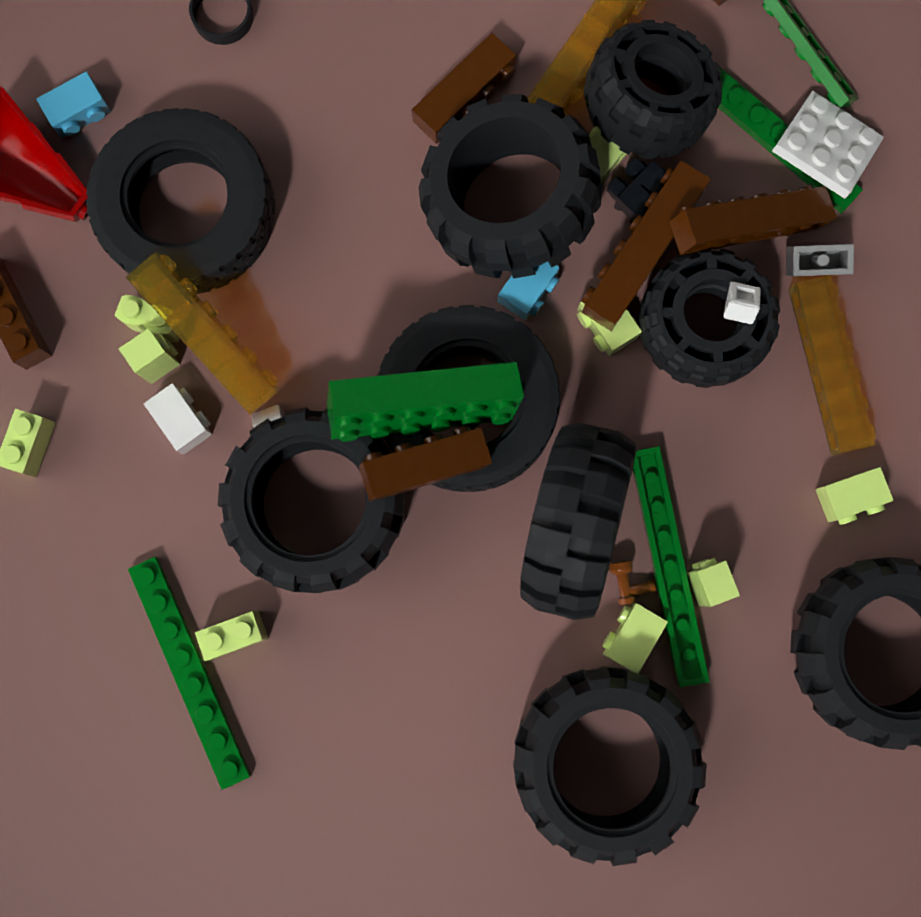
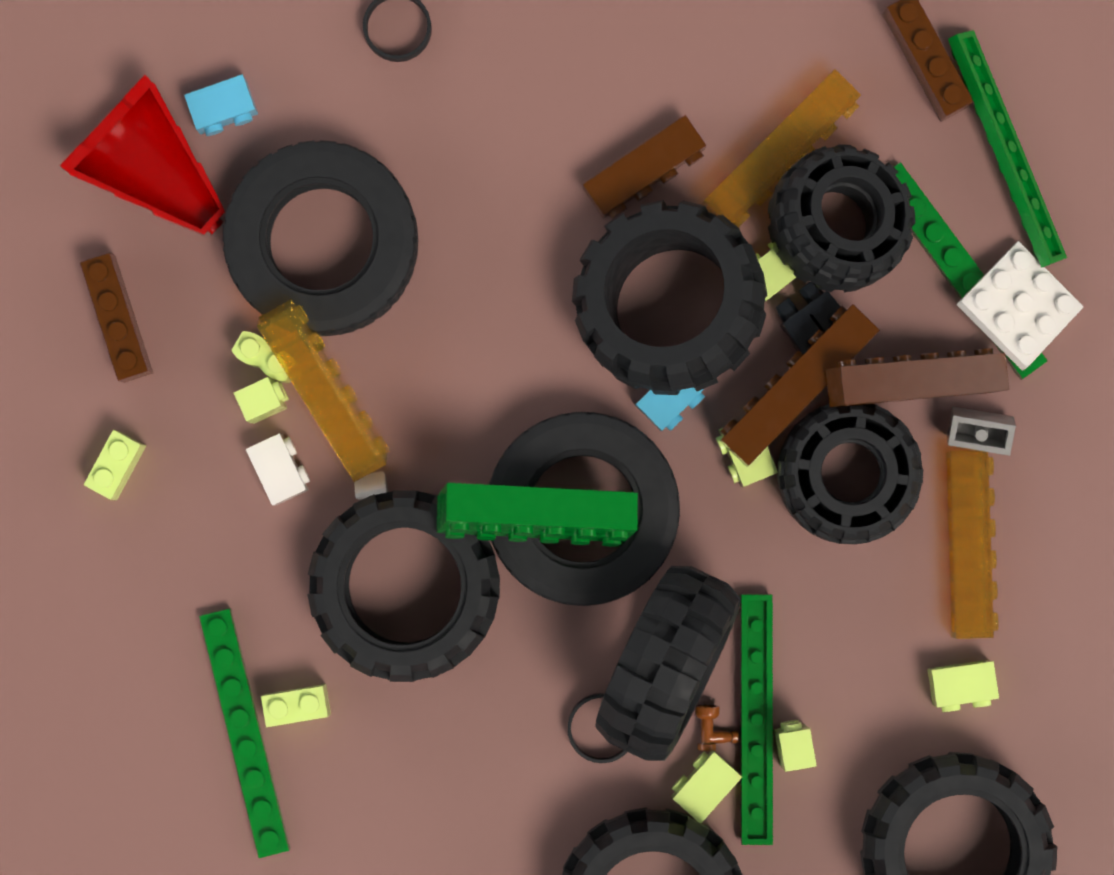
camera: 10 degrees right, 5 degrees up
(424, 464) = (526, 576): reddish brown brick -> none
(550, 620) = (582, 754): none -> black tyre
(742, 303) = (881, 470): white slope -> none

